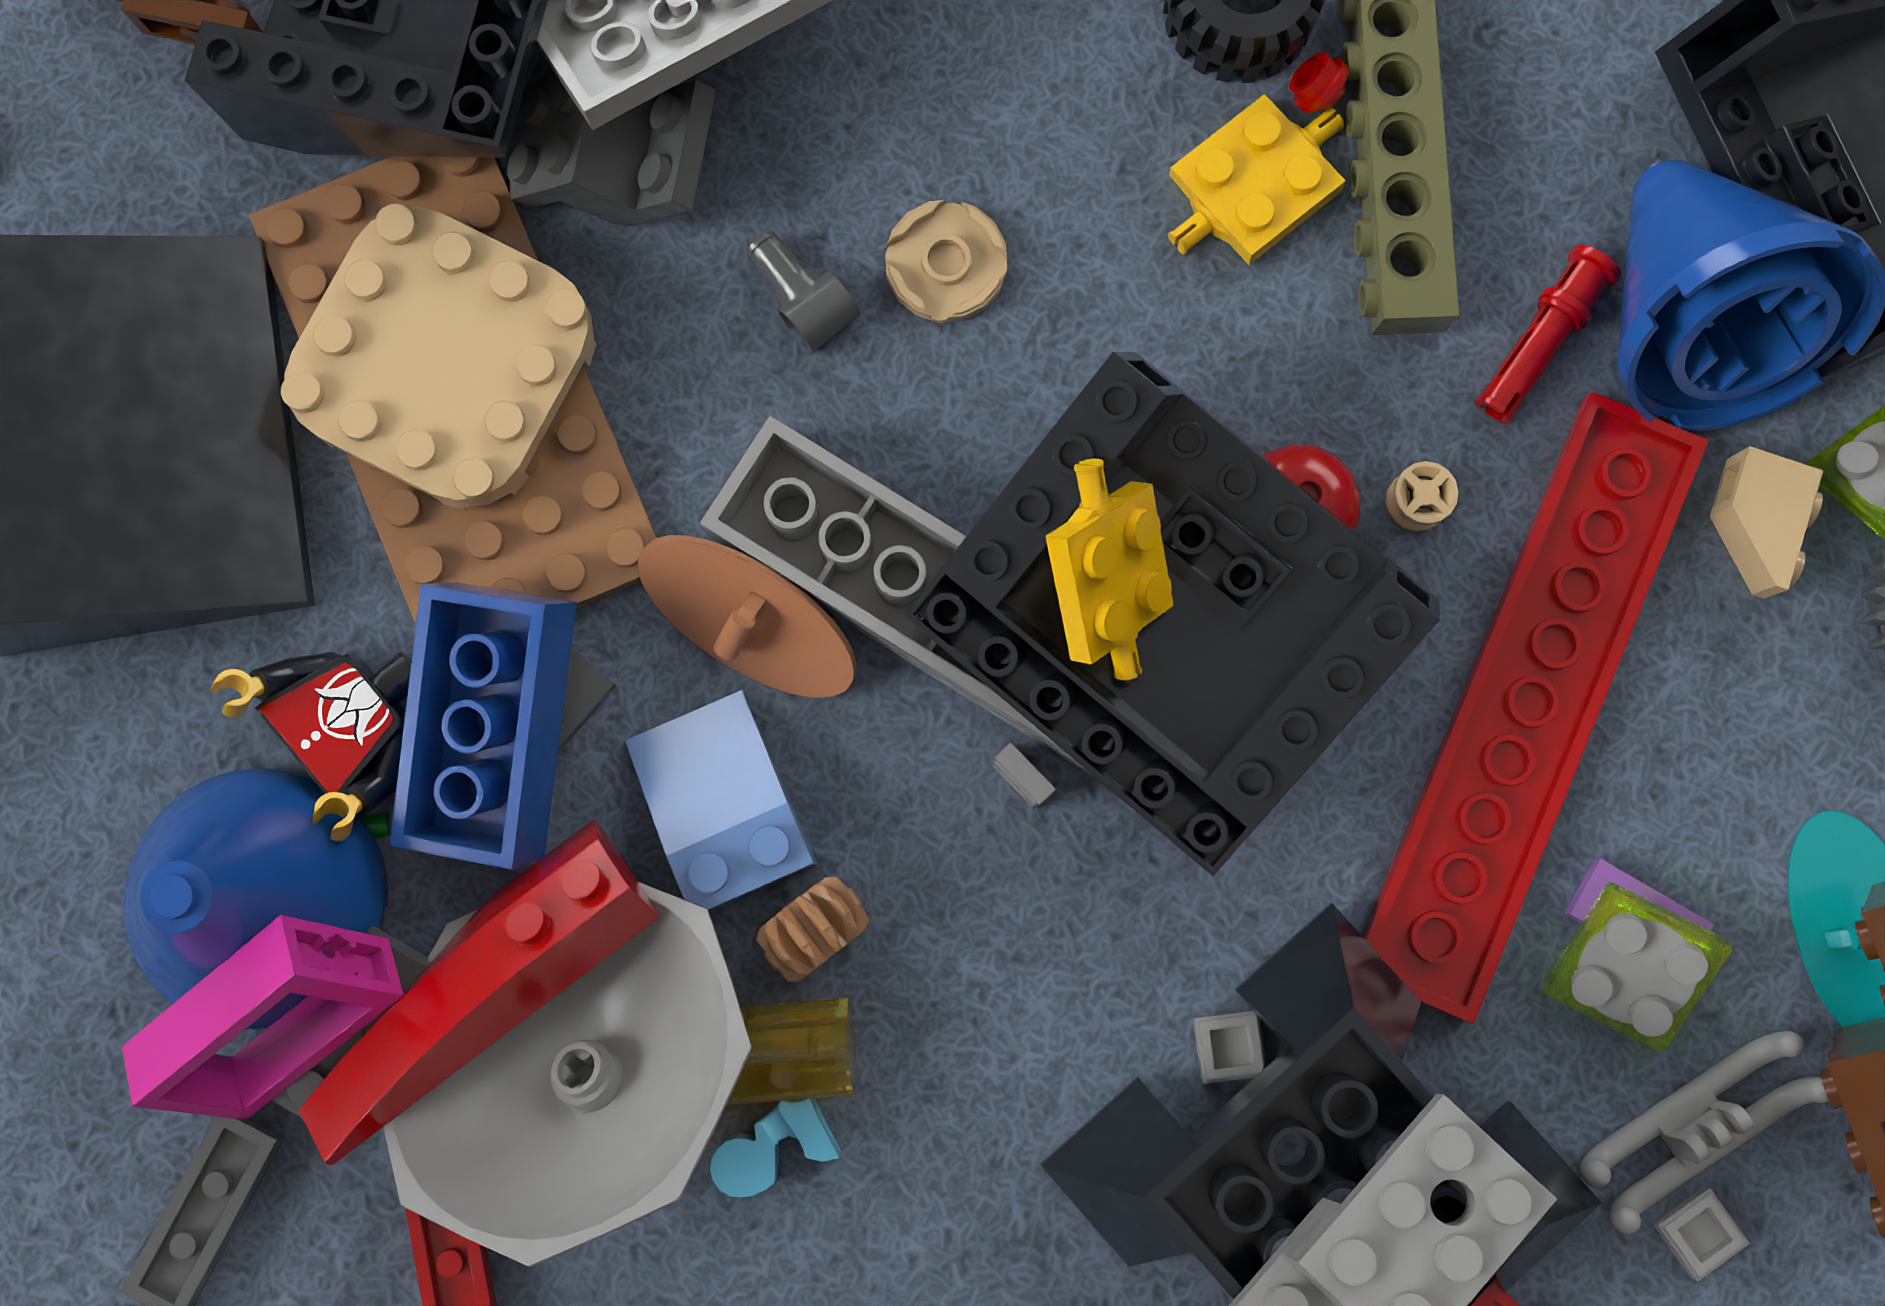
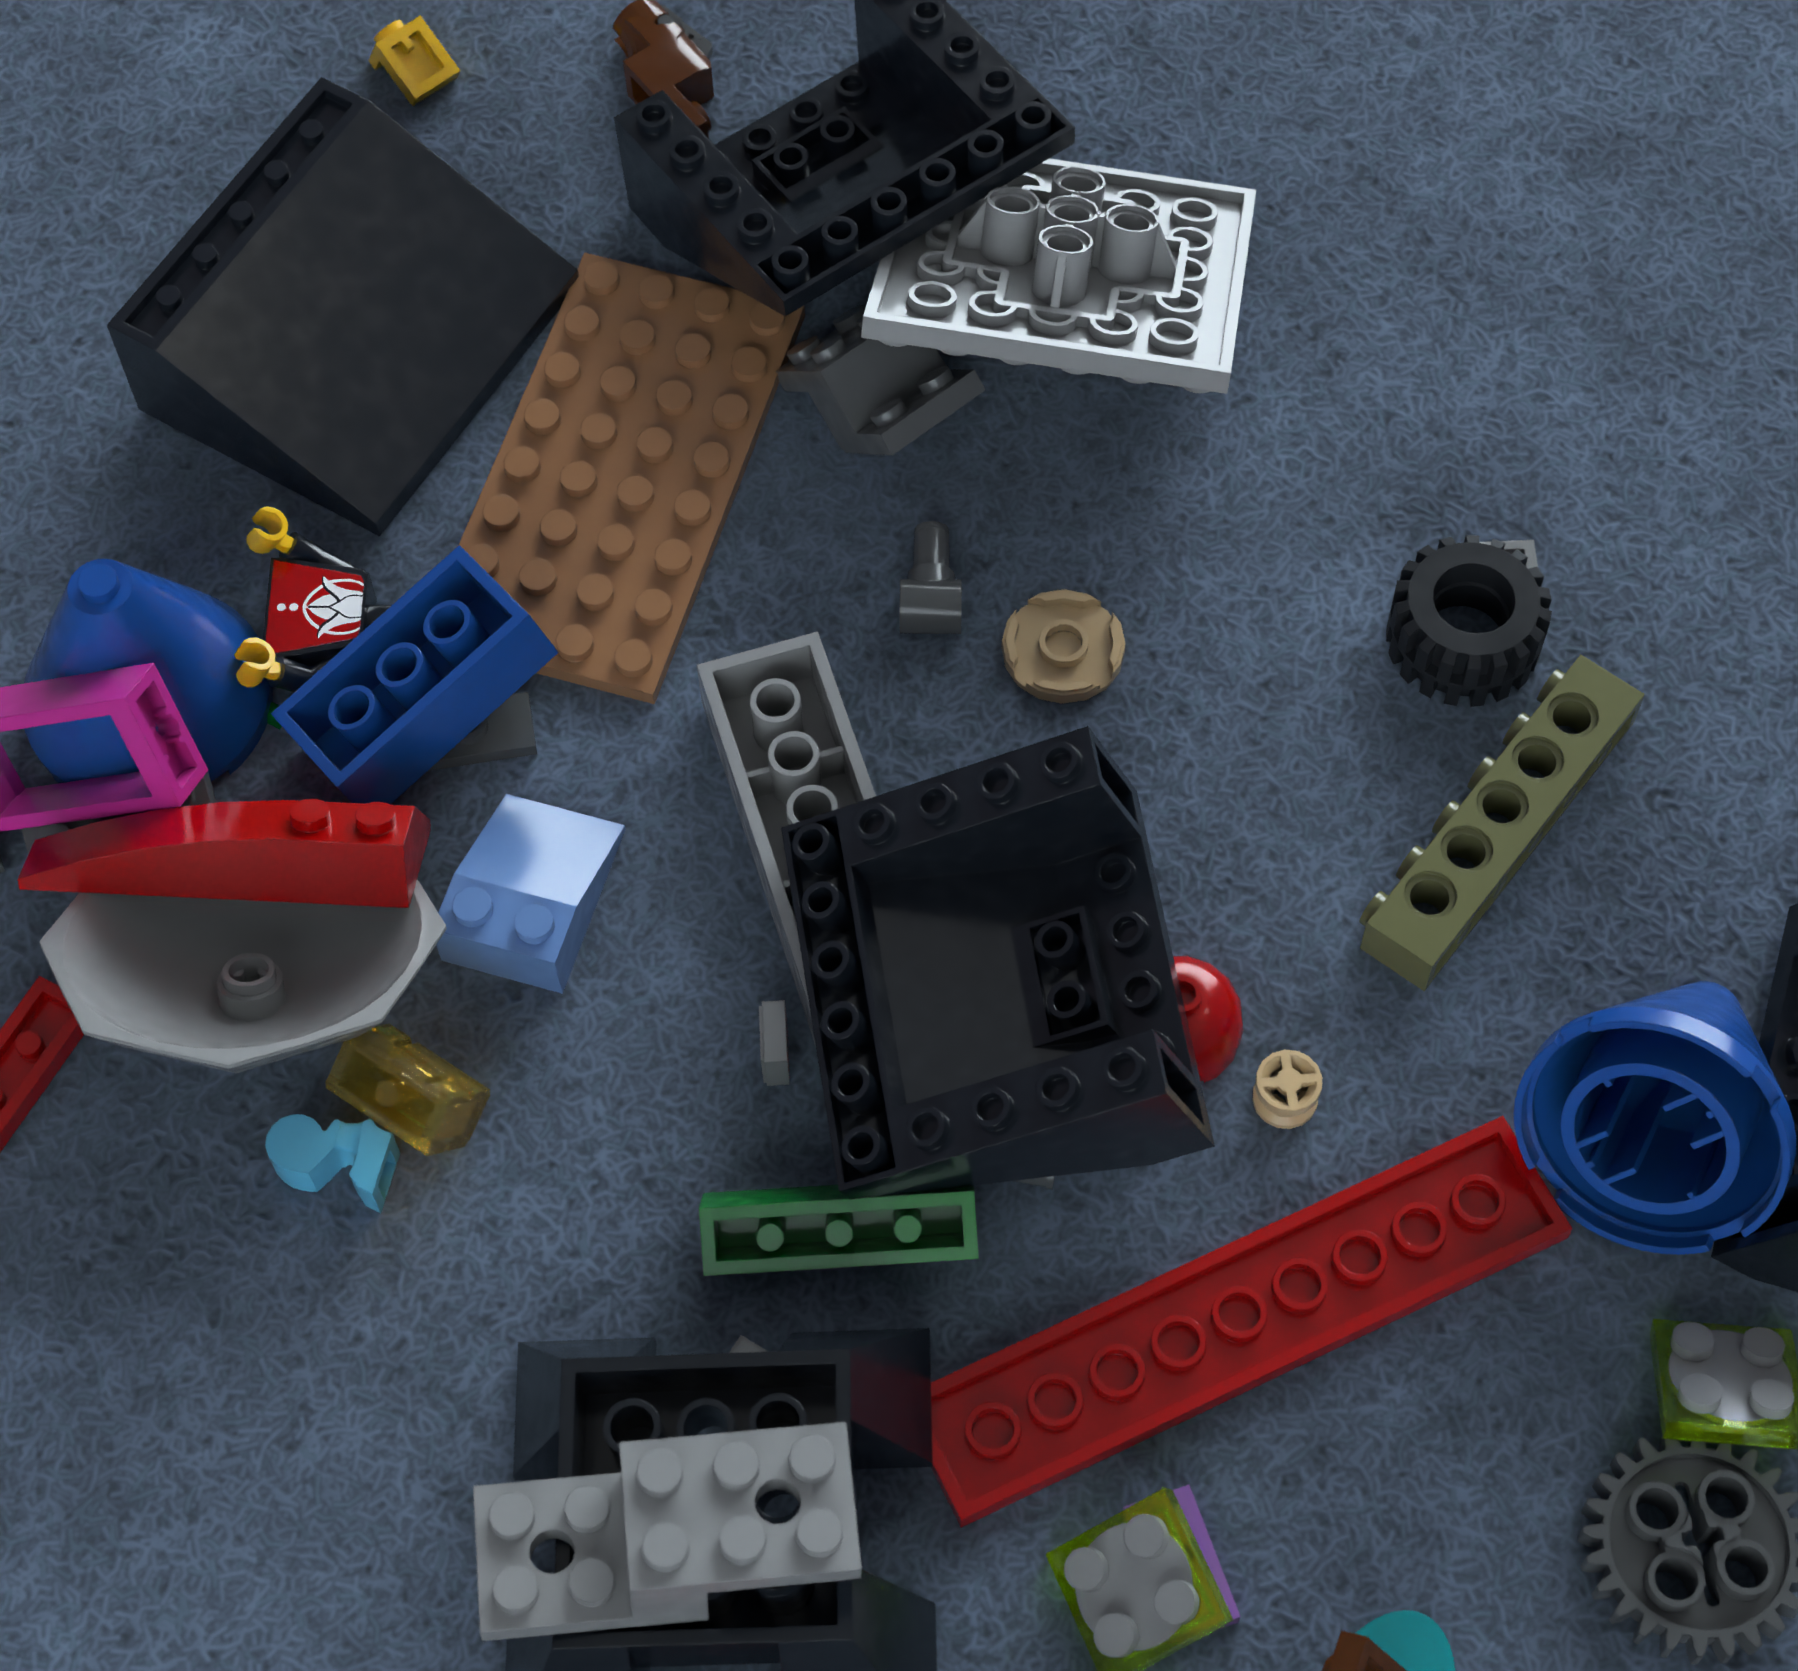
camera: 45 degrees right, 20 degrees down
(439, 356) = (622, 427): tan plate -> none
(747, 616) = (674, 768): nougat shield -> none
(812, 929) = (511, 1018): medium nougat gear -> none
(1109, 570) = (956, 896): yellow plate -> none
(1182, 910) = (827, 1230): none -> green brick
(1256, 179) = (1365, 764): yellow plate -> none
(1319, 82) = (1477, 729): red plate -> none
(1561, 311) = (1487, 1051): red pin -> none
(1763, 517) = (1571, 1322): tan slope -> none

